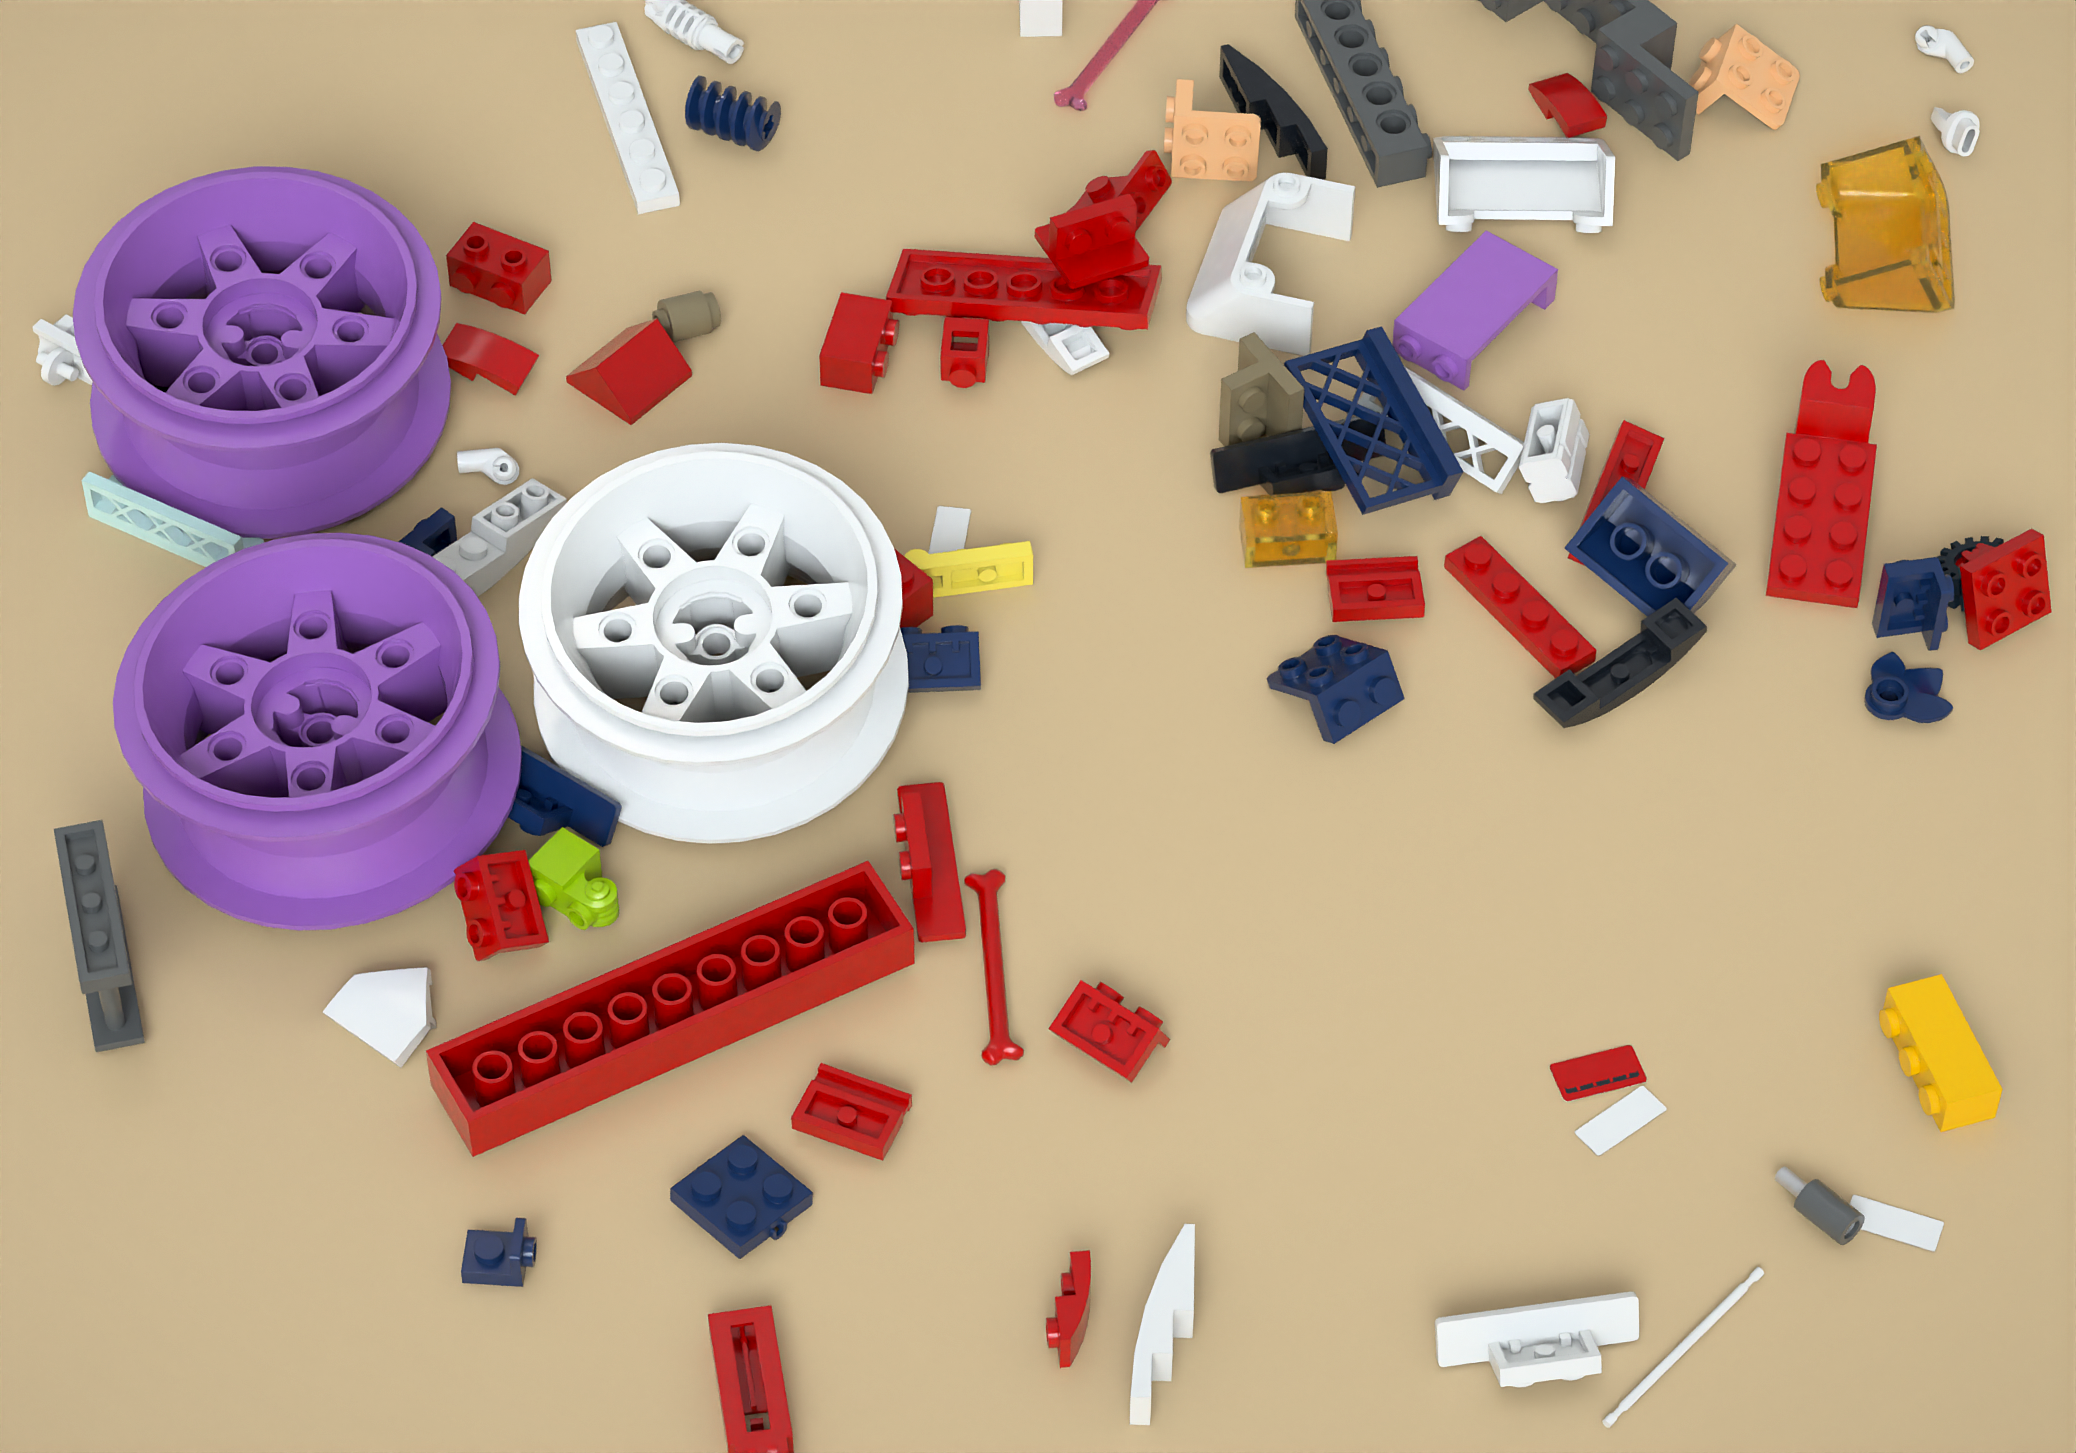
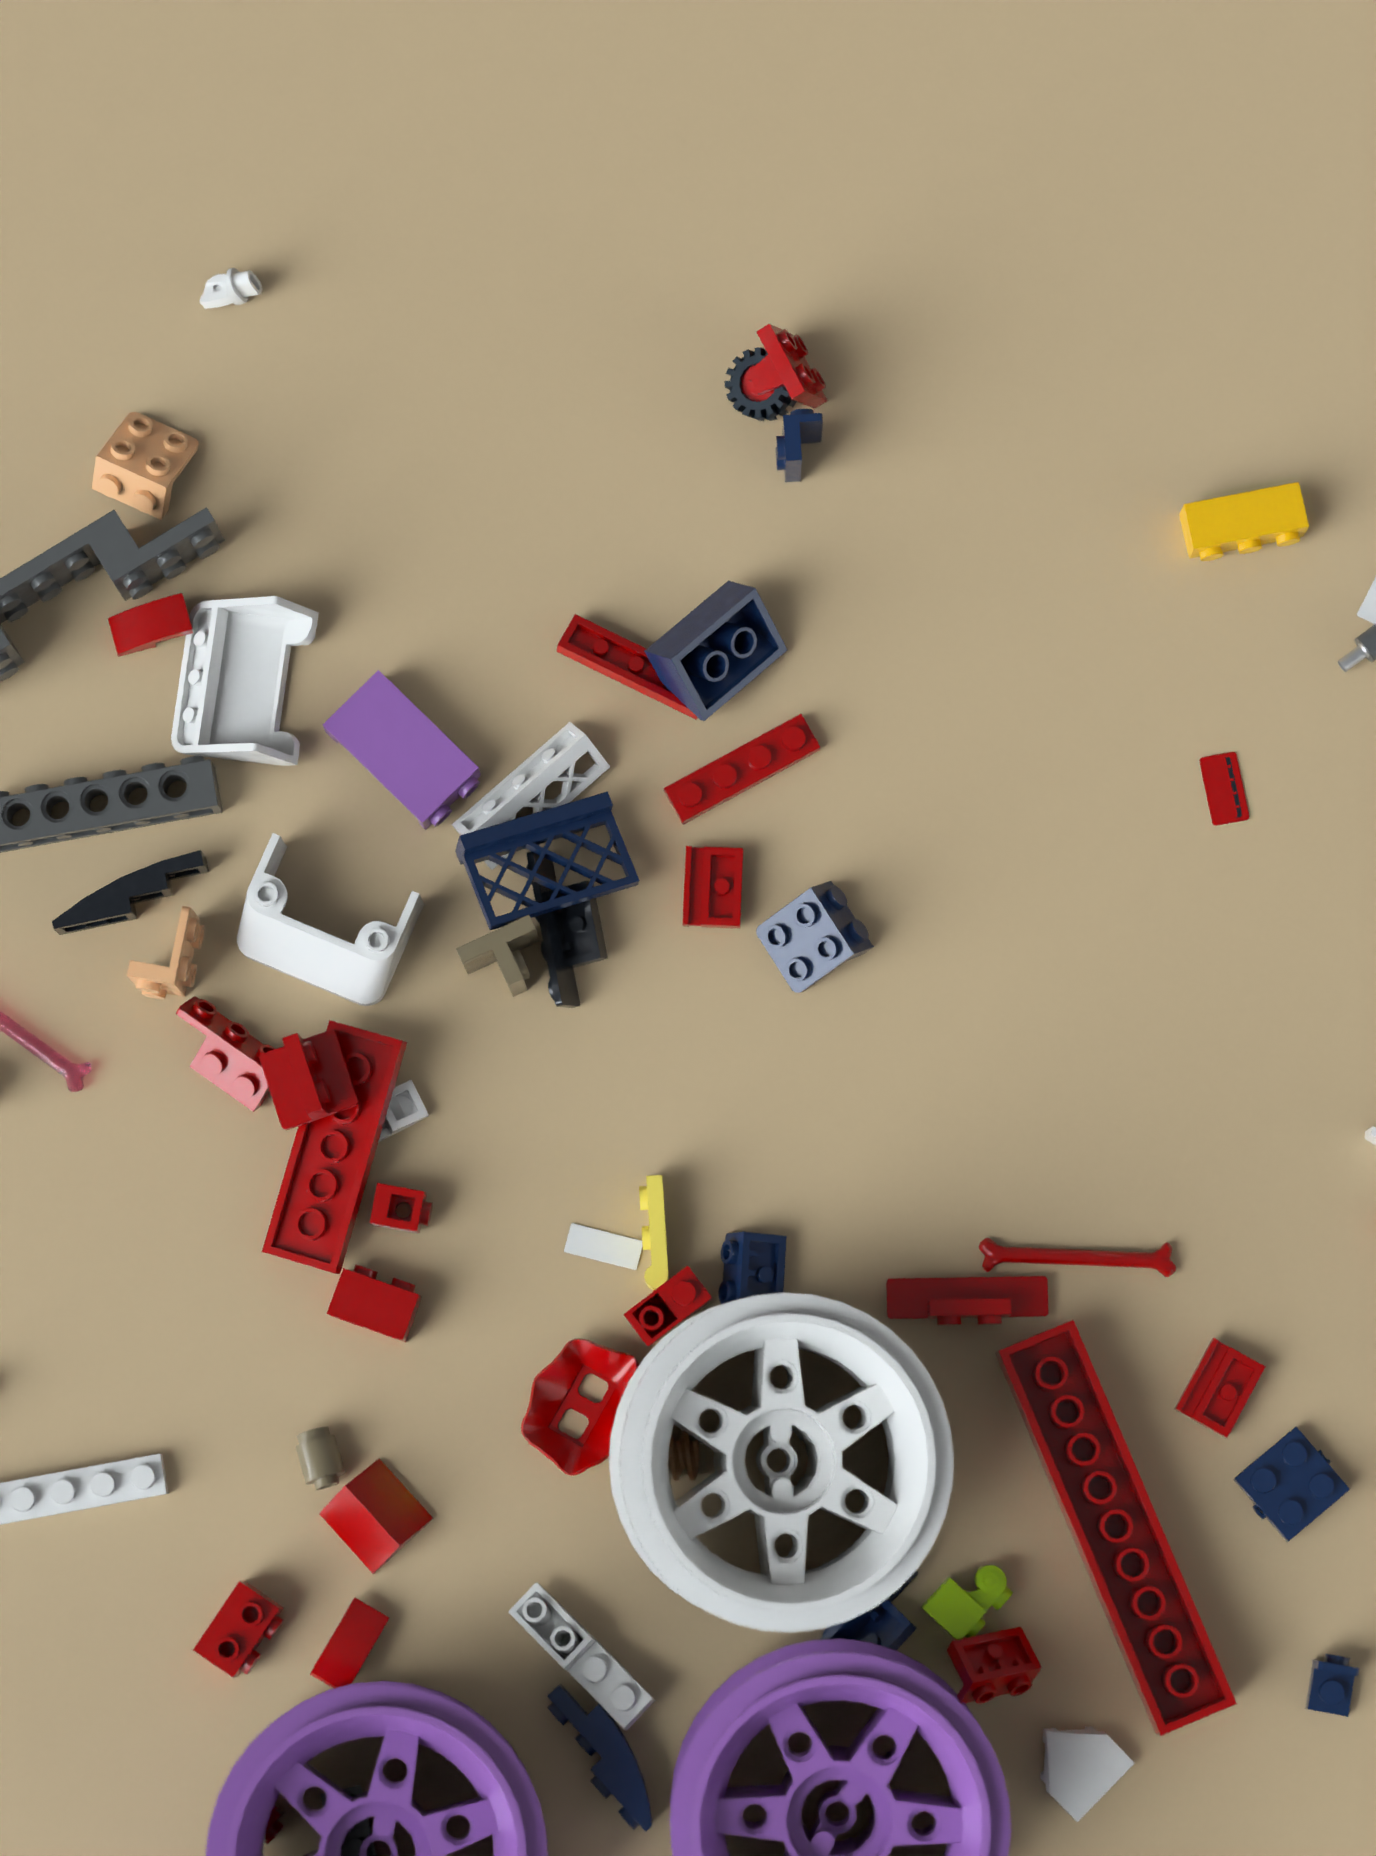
camera: 80 degrees left, 30 degrees up
(491, 462) = (473, 1646): white arm -> none
(731, 117) = (69, 1397): dark blue piece -> none
(1107, 1030) = (1158, 1169): red bracket -> none
(1288, 529) = (640, 951): clear yellow brick -> none
(1554, 450) = (587, 710): white brick -> none
(1620, 1120) = (1271, 779): white sticker -> none
(1626, 670) = (825, 697): black slope -> none
(1825, 492) = (657, 491): red hinge -> none
(1888, 231) = (361, 377): clear yellow windscreen -> none
(1905, 692) = (866, 465): dark blue plate -> none
(1944, 45) = (118, 275): white arm -> none

